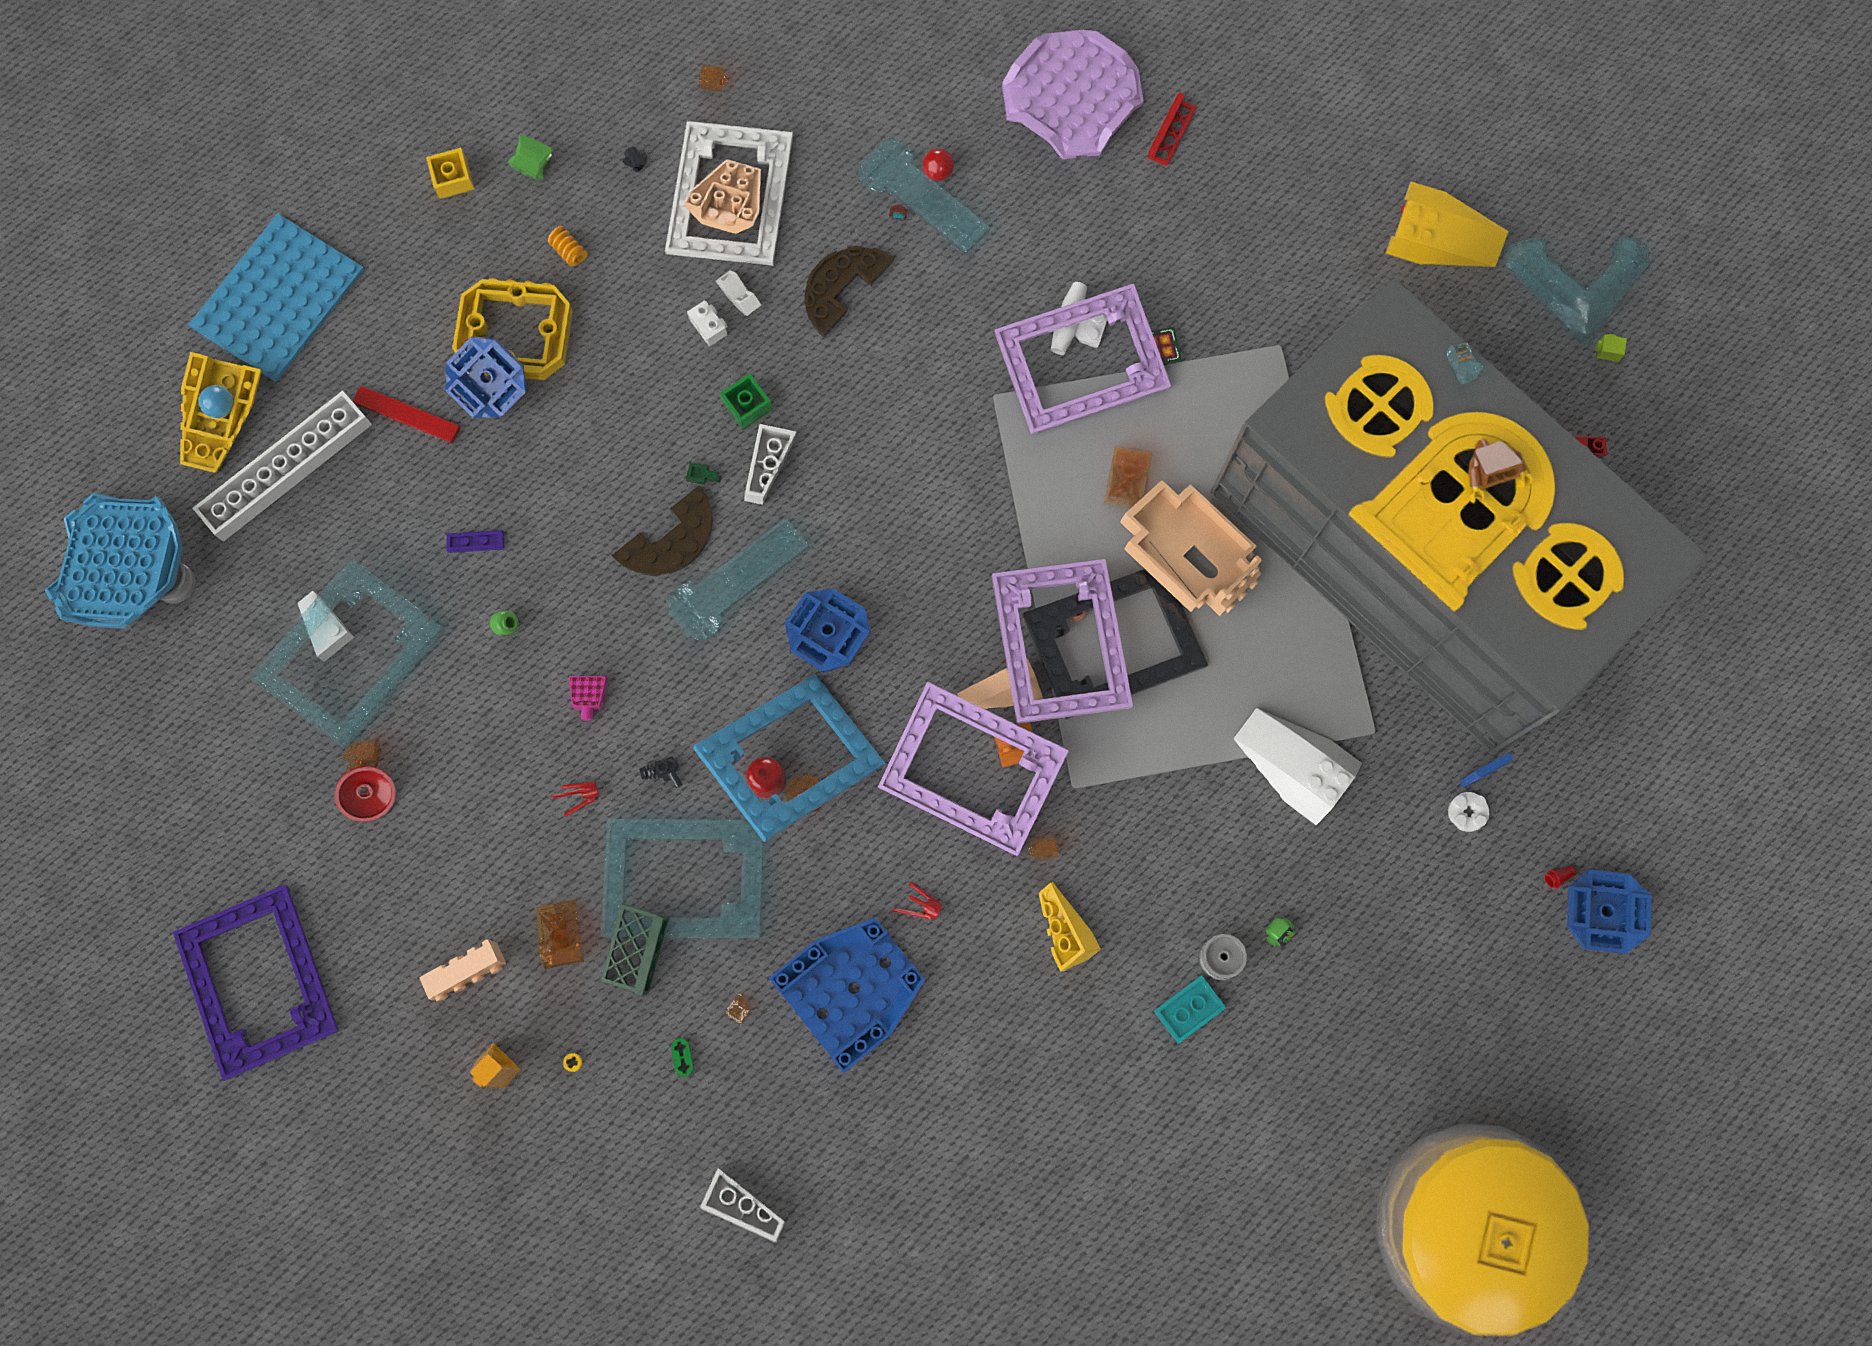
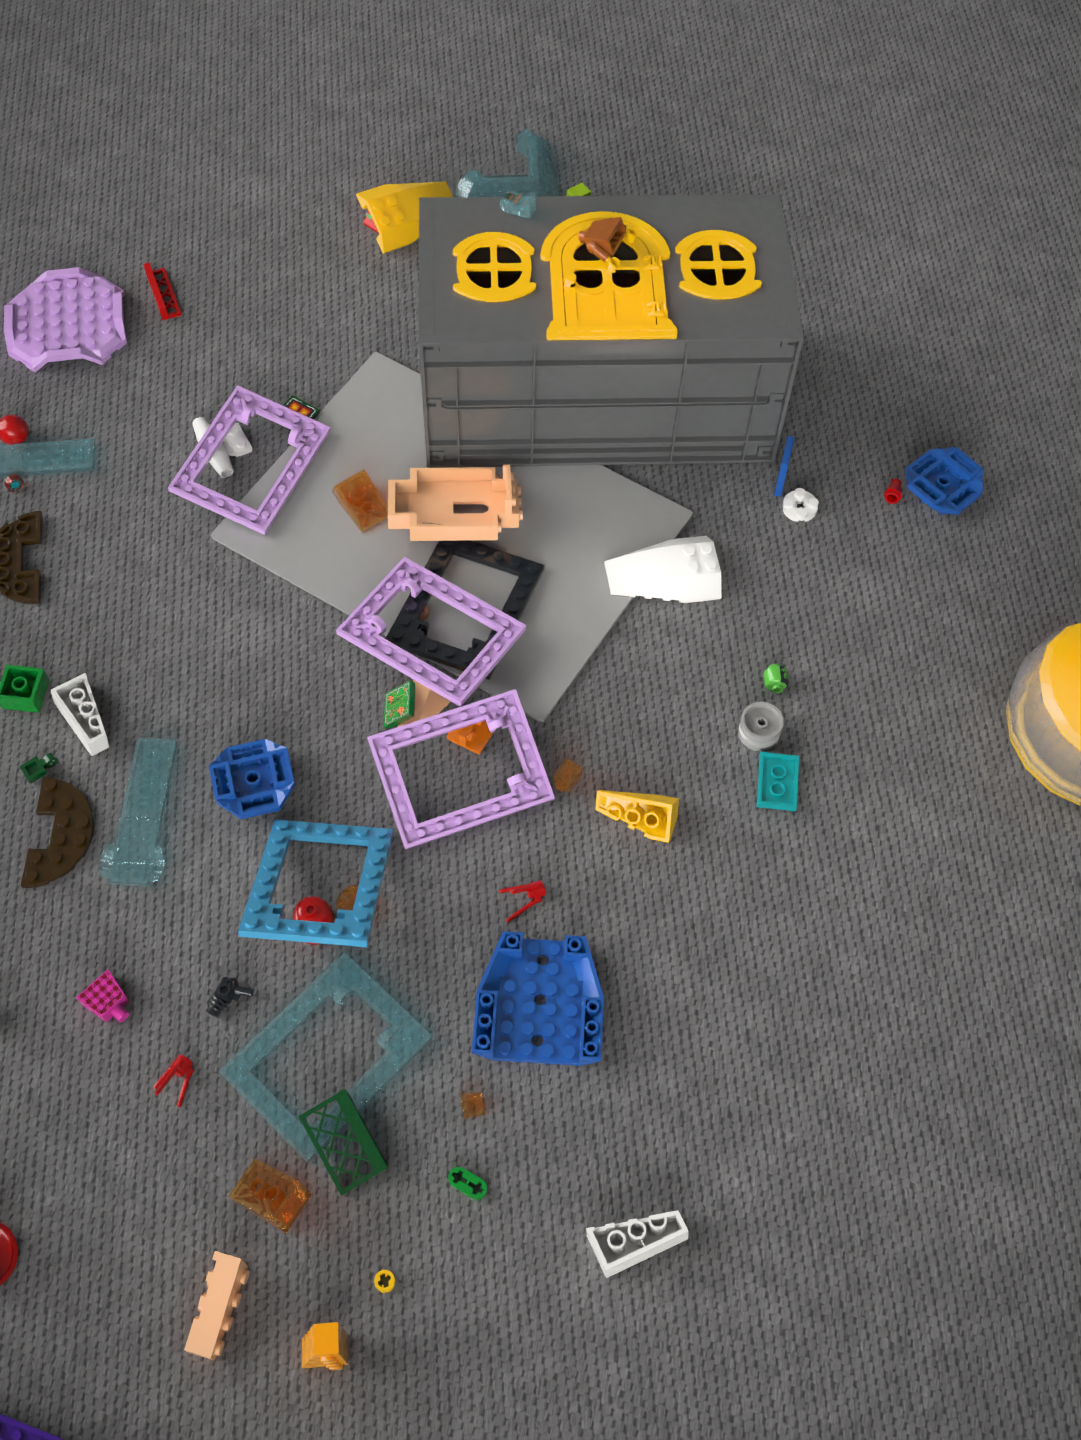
camera: 50 degrees left, 15 degrees down
(984, 674) = (399, 705): none -> green tile

